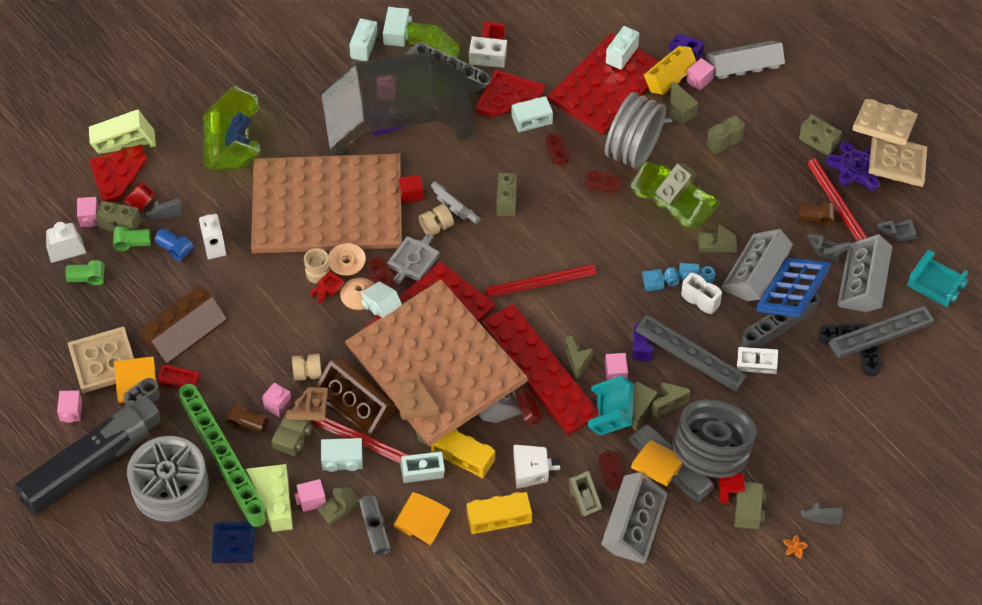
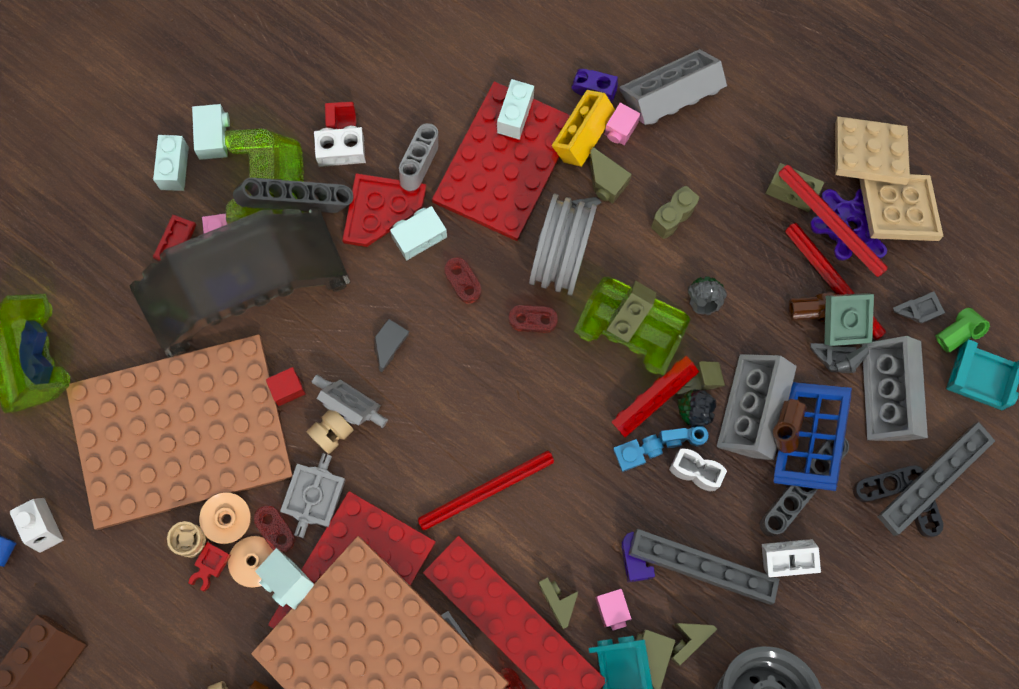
camera: 15 degrees left, 20 degrees up
(490, 177) = (387, 342): none -> dark grey slope
(506, 194) = (413, 368): olive brick -> none
(544, 66) = (418, 157): none -> light grey beam
(681, 242) = (655, 396): none -> red plate
(711, 255) = (697, 408): none -> black piece
(736, 189) = (706, 295): none -> dark grey piece
(774, 275) = (789, 425): none -> reddish brown piece
(839, 220) = (849, 319): none -> sand green plate
(841, 155) = (832, 220): none -> red axle
(918, 249) = (967, 325): none -> bright green piece

